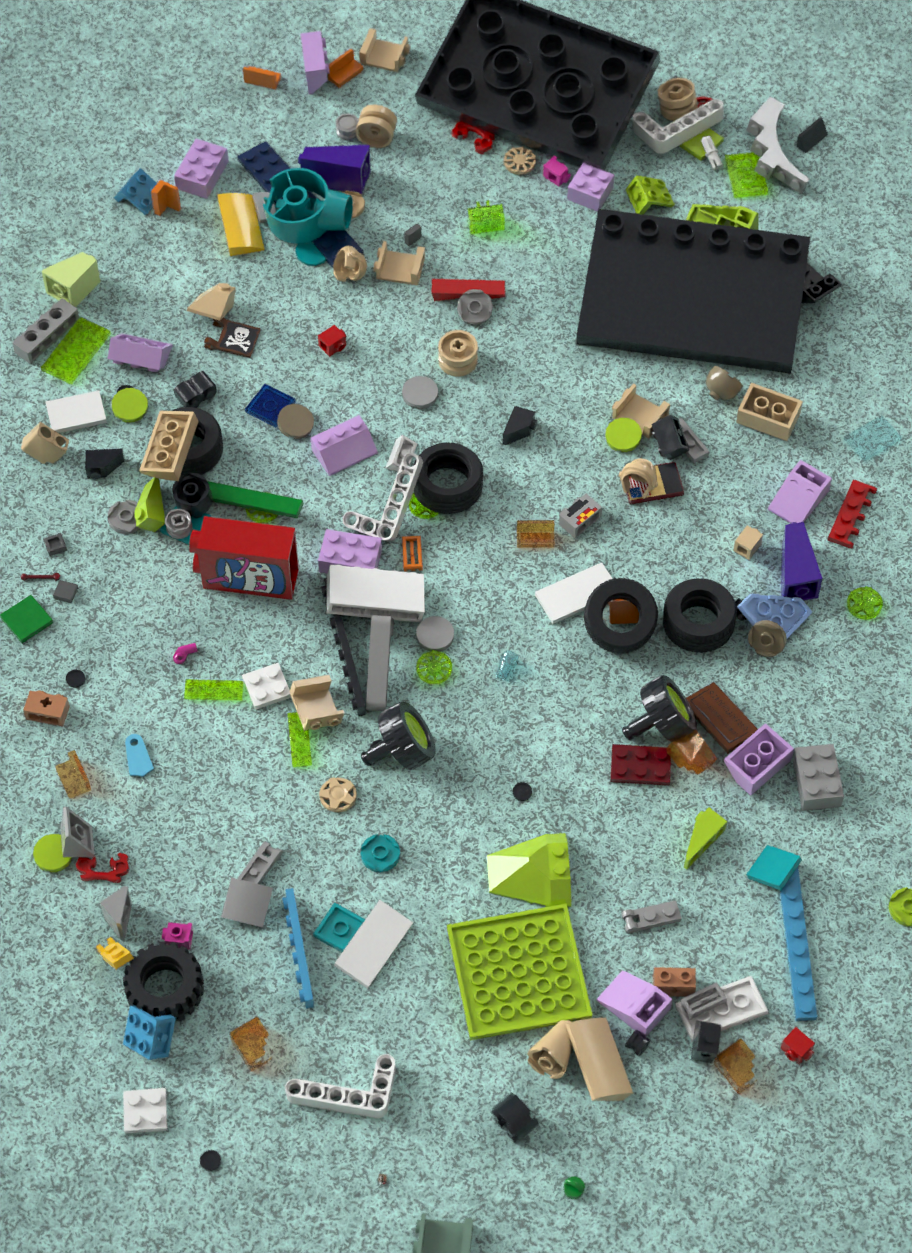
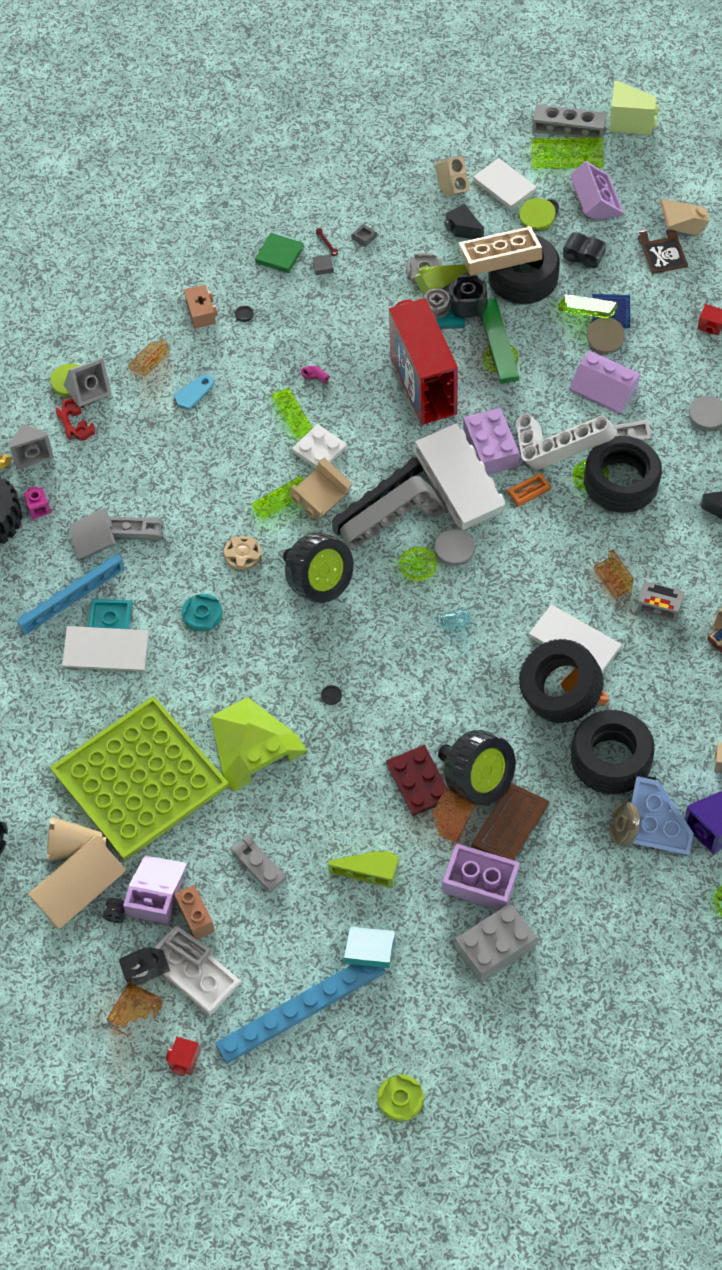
camera: 65 degrees right, 0 degrees up
(258, 417) = (587, 306): none -> clear neon green tile

